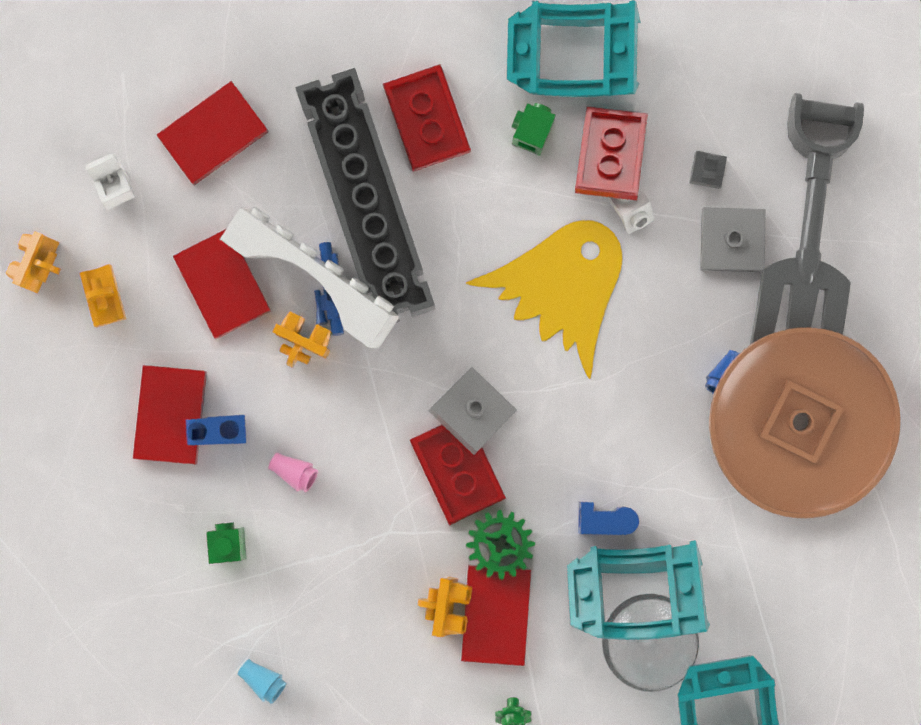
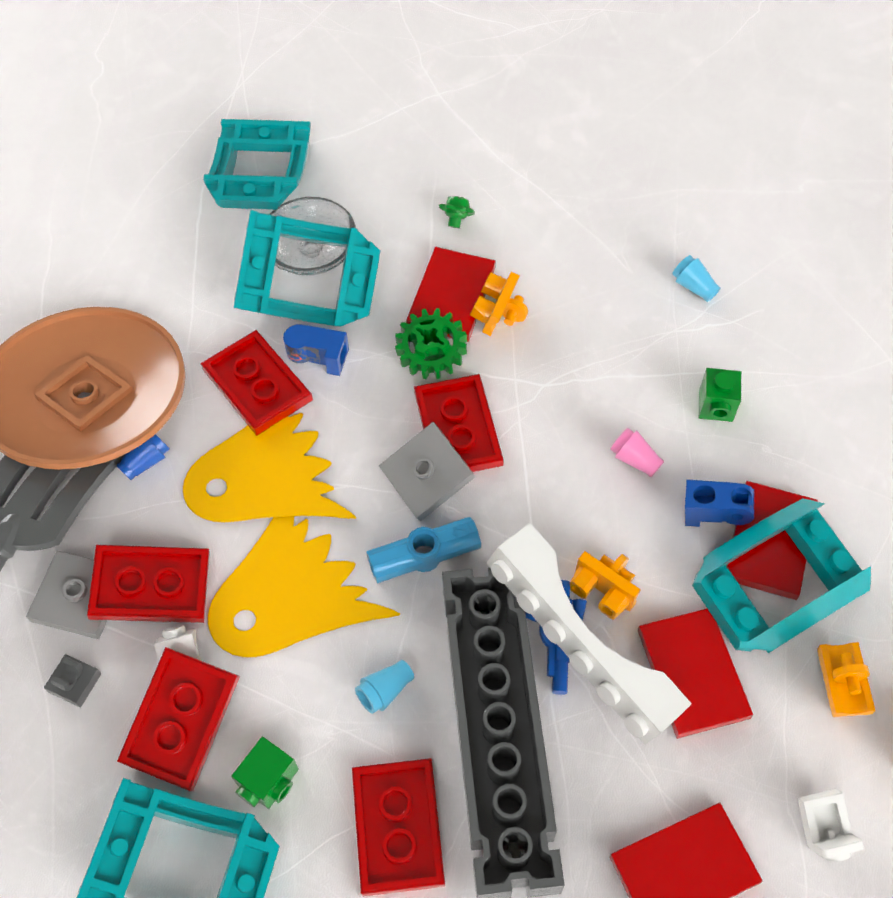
camera: 165 degrees left, 25 degrees down
(128, 408) = (820, 548): none -> teal wedge
(462, 215) = (383, 686): none -> medium azure cone
(475, 324) = (402, 558): none -> dark azure piece
(617, 388) = (263, 477): none -> yellow piece
(652, 475) = (256, 382): none -> red tile
(676, 258) = (149, 584): none -> red tile

